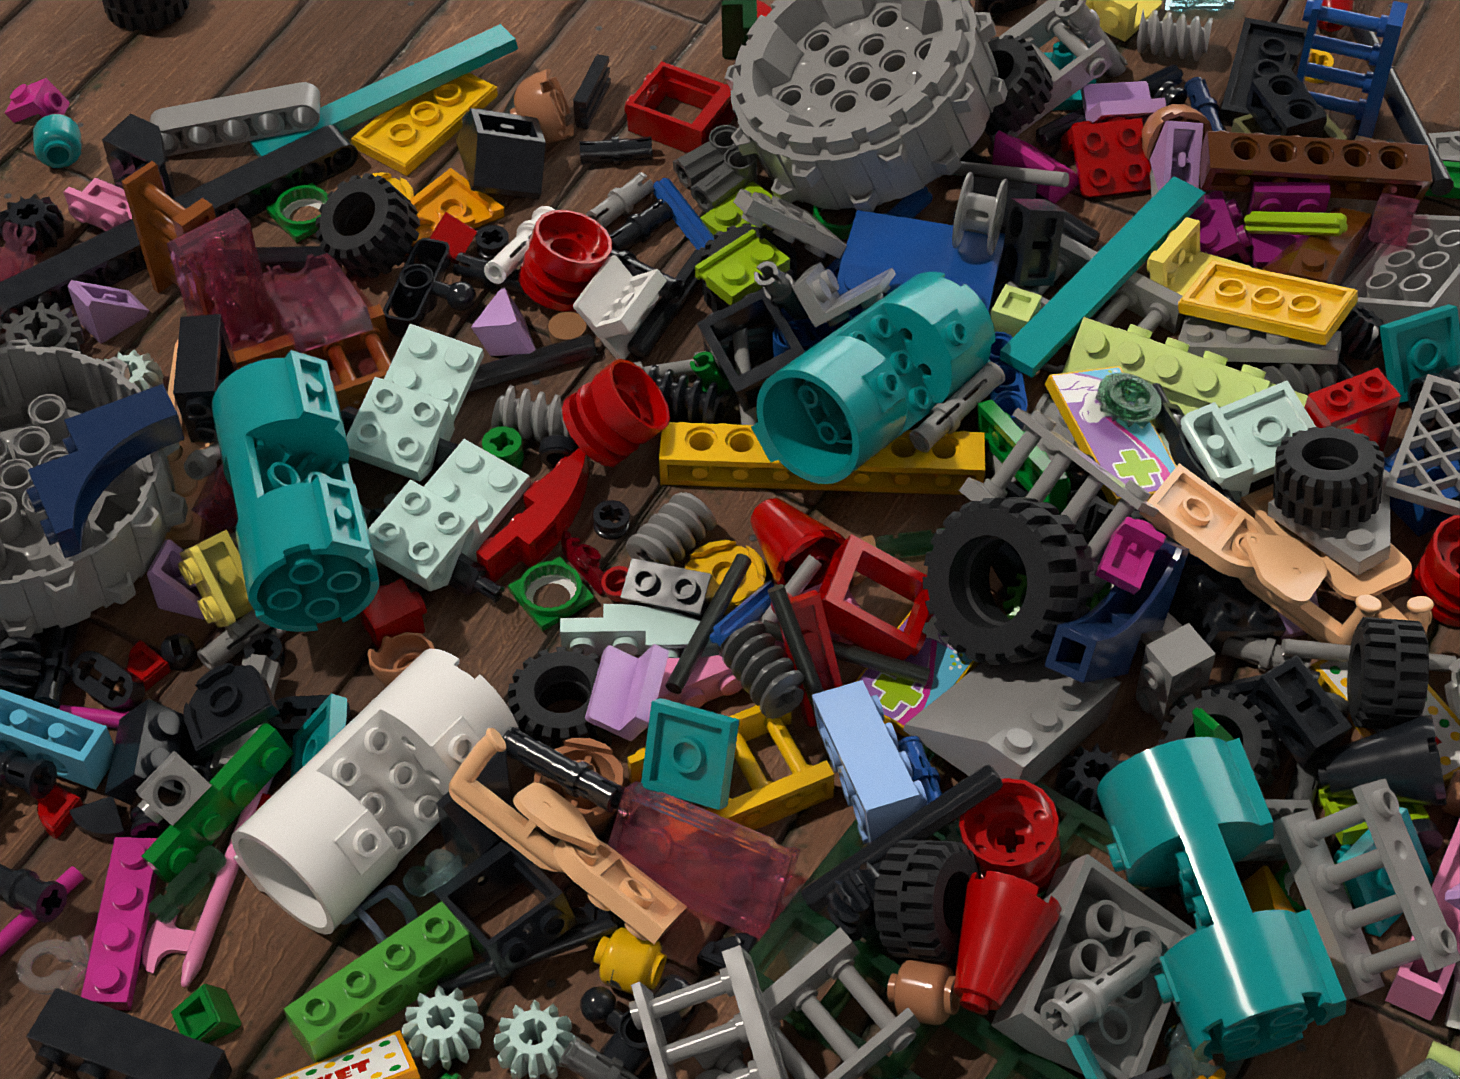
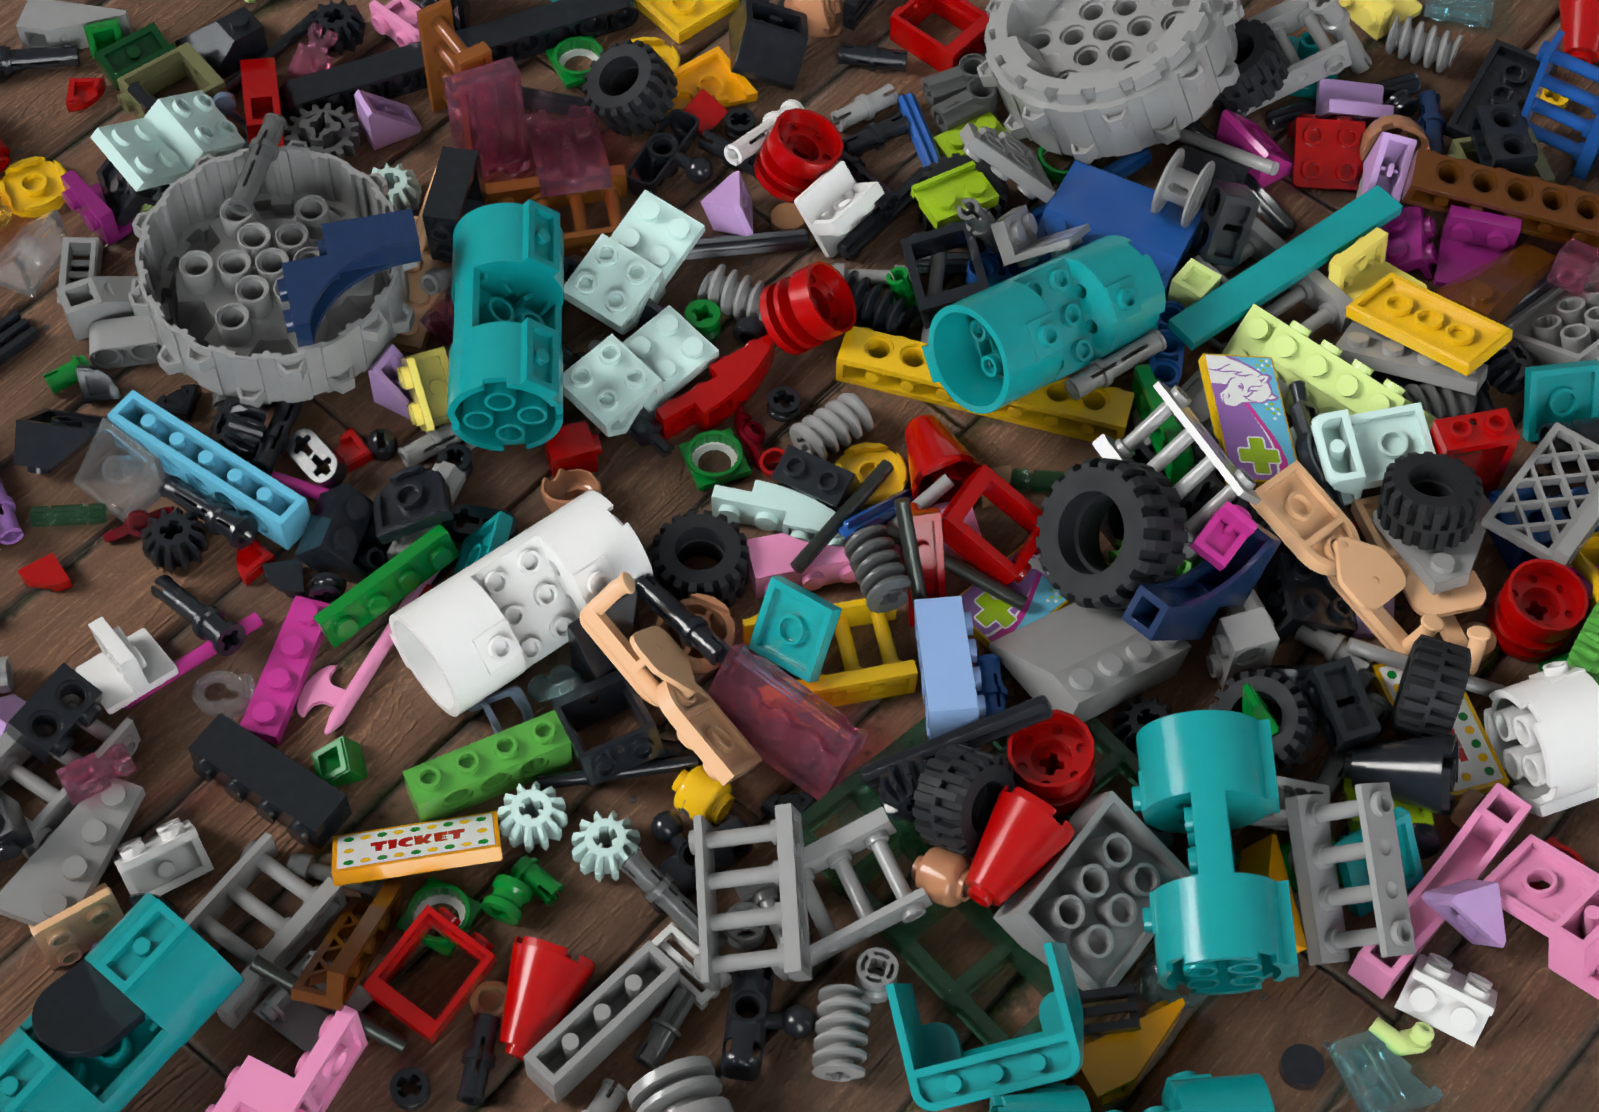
camera: 10 degrees right, 5 degrees up
(171, 769) = (356, 549): light grey brick -> none
(187, 884) = (347, 648): clear green axle -> none
(625, 690) = (753, 560): lavender panel -> none
(1090, 998) = (1079, 914): light grey pin -> none
(1131, 389) = (1275, 382): clear green gear -> none
(1296, 223) = (1479, 253): lime axle -> none

